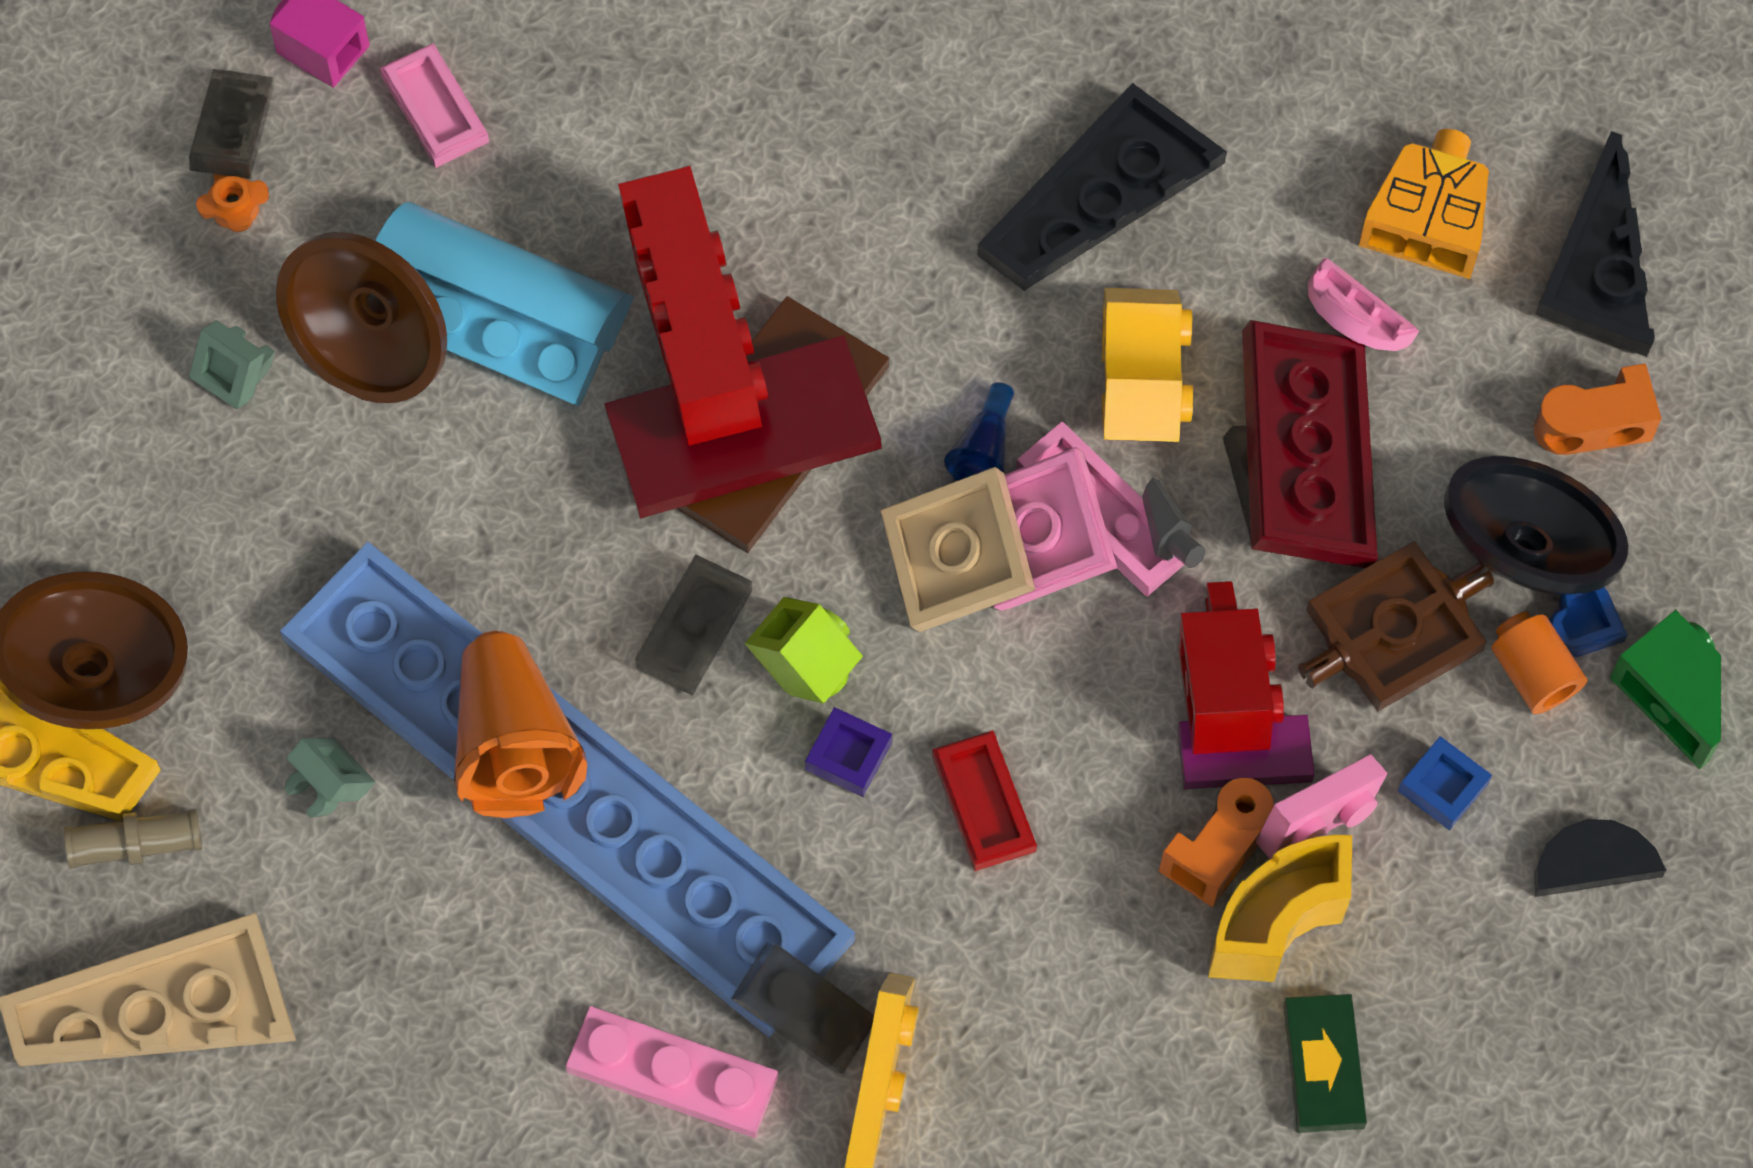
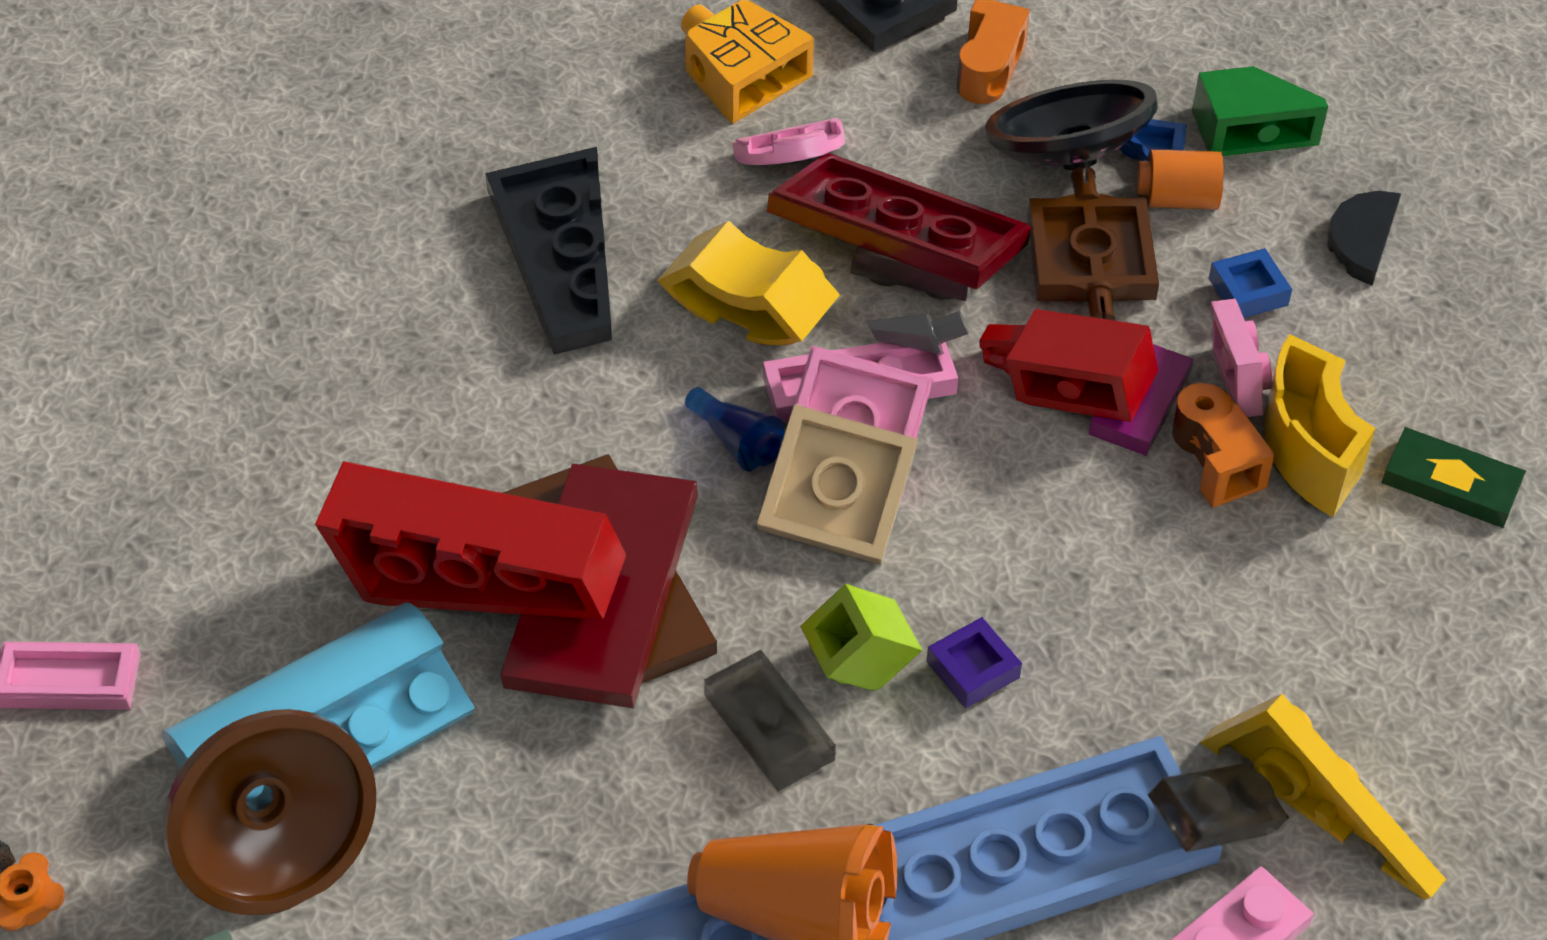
camera: 60 degrees left, 15 degrees down
(984, 800) = (1077, 592): red tile -> none

